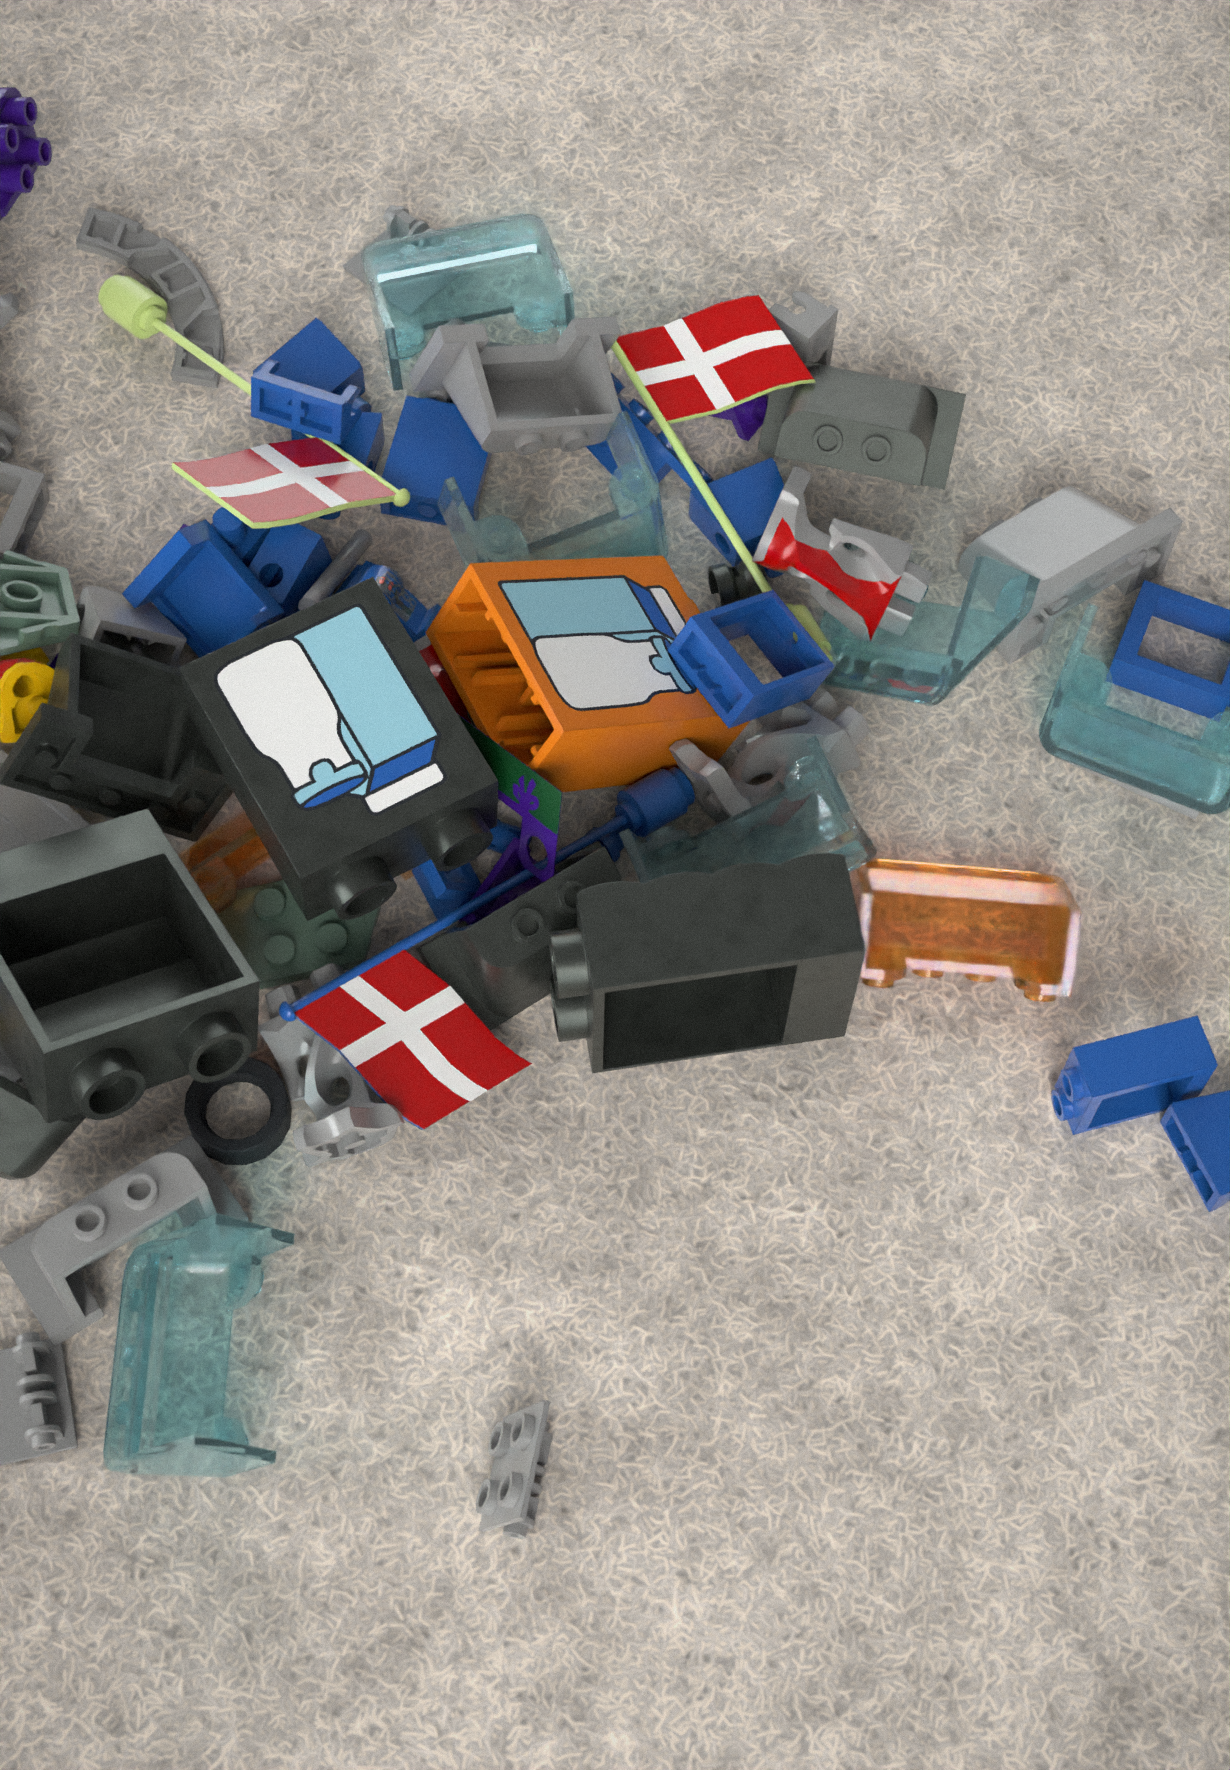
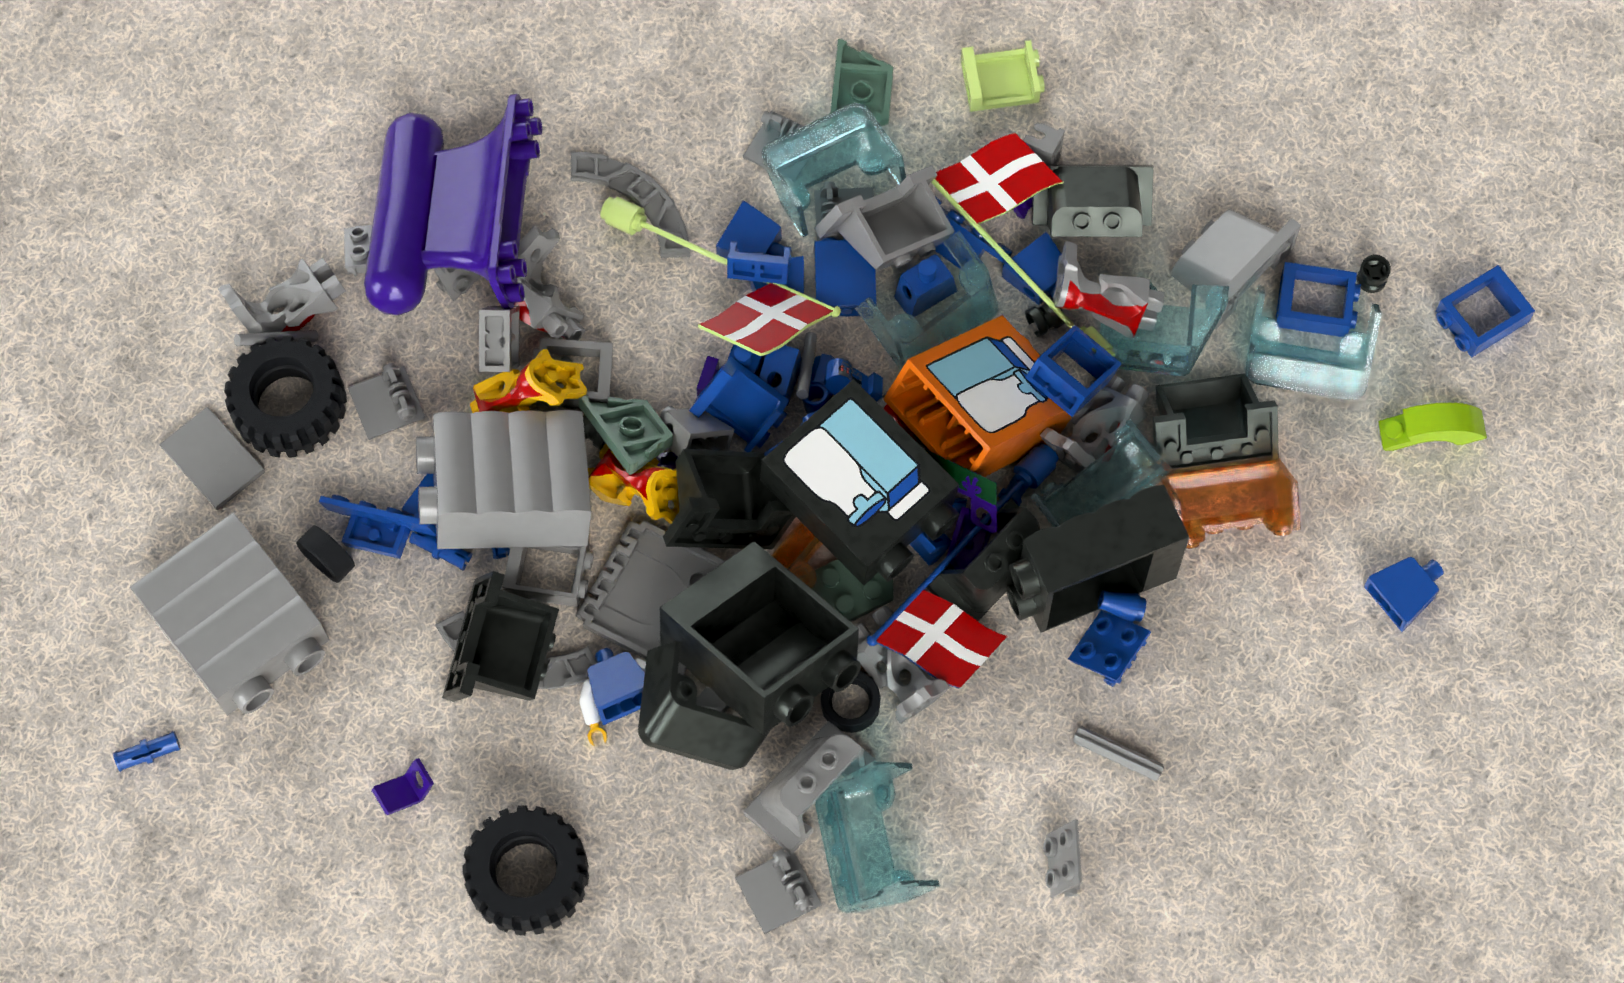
camera: 10 degrees left, 5 degrees up
(557, 492) = (928, 285): none -> blue torso
(561, 197) = (863, 81): none -> sand green wing
(667, 1305) = (1118, 753): none -> light grey axle
(701, 1122) = (1109, 646): none -> blue hinge
(740, 1057) = (1123, 605): none -> blue cone
(768, 238) = (1002, 78): none -> yellowish green panel
(966, 803) = (1214, 424): none -> pearl dark grey windscreen
(1133, 1075) = (1344, 566): blue window -> none

